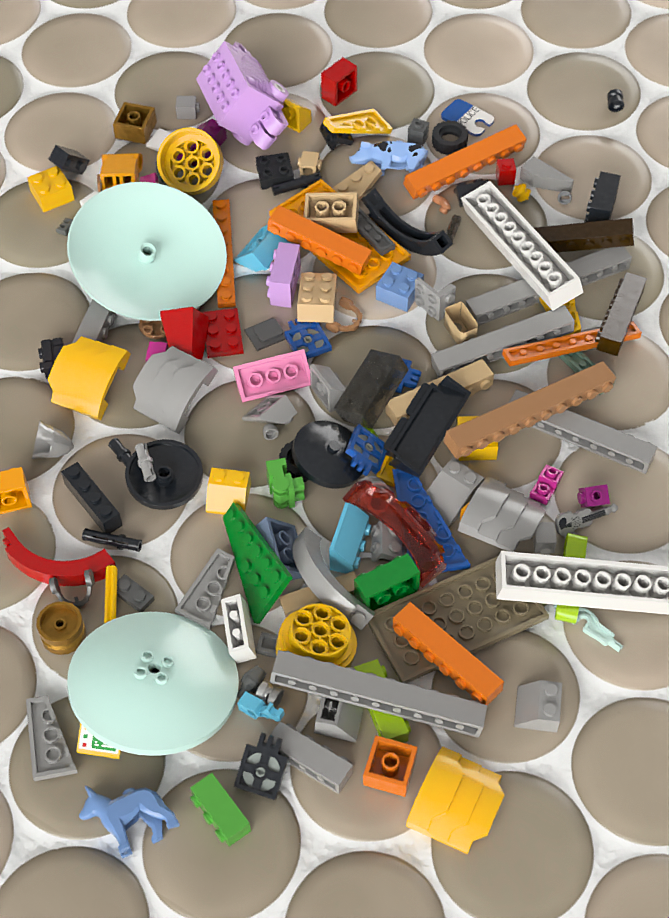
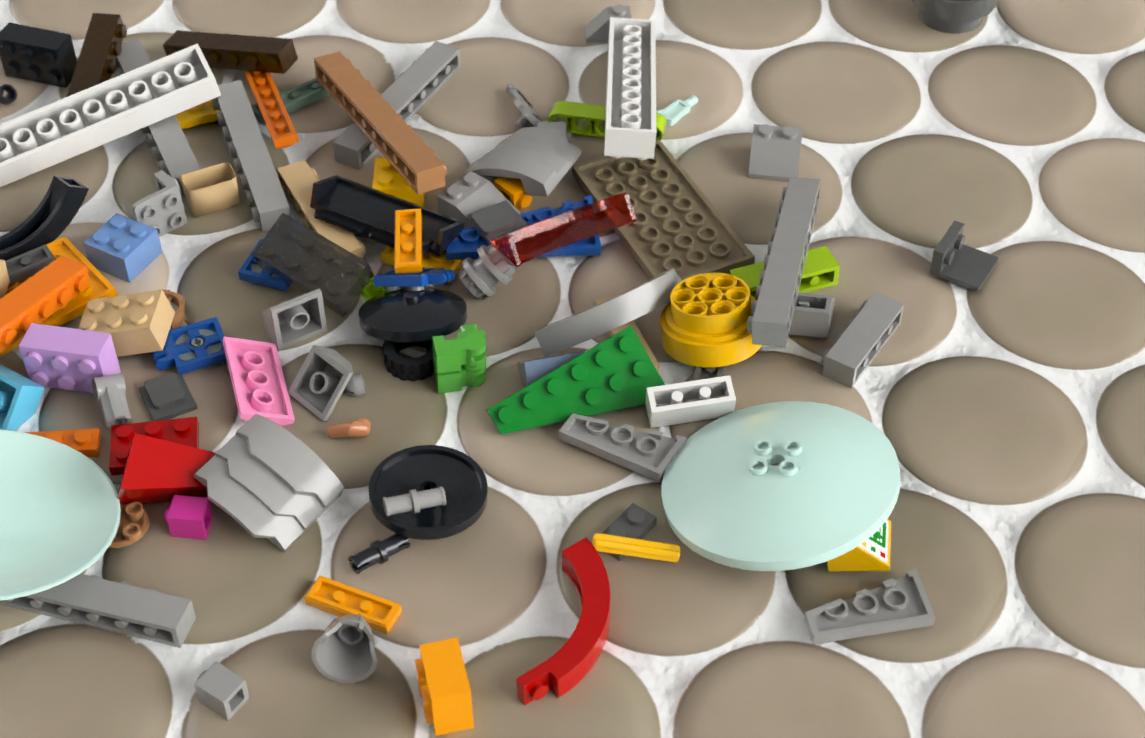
camera: 90 degrees left, 10 degrees down
(27, 387) = (221, 690): none -> light grey brick
(49, 352) = (163, 658): black brick -> none
(61, 627) = (696, 598): pearl gold wheel -> none
(85, 374) = (223, 593): yellow slope -> none
(88, 445) = (346, 600): none -> light orange tile
(90, 581) = (625, 614): dark grey piece -> none
(91, 498) = (461, 582): black brick -> none
(126, 810) = (967, 516): medium blue animal -> none
(133, 544) = (539, 547): black pin -> none
(219, 810) = (946, 419): bright green brick -> none
(225, 488) = (461, 423): yellow slope -> none
(227, 429) = (355, 429): none -> nougat arm
(251, 680) = (758, 393): dark grey piece -> none
(257, 301) = (111, 394): none -> light grey piece
(258, 708) = (802, 388): medium azure piece -> none
(262, 768) = (887, 375): black piece -> none
(269, 693) = (777, 379): light grey wheel -> none
(349, 539) = (547, 299): medium azure slope -> none
(384, 543) = (550, 273): light grey bracket -> none
(387, 582) = (622, 254): green brick -> none
(390, 439) = (408, 241): none -> light orange tile
(390, 766) = (869, 264): orange brick -> none
(405, 846) = (961, 262): none -> dark grey bracket
(427, 498) = (496, 220): none -> dark grey piece
(447, 654) = (720, 211): orange brick -> none
(453, 226) = (20, 199): clear smoke axle -> none
(456, 801) = (898, 214): yellow slope -> none
(546, 484) = (468, 137): dark pink slope -> none
(593, 496) = (498, 95): magenta brick -> none

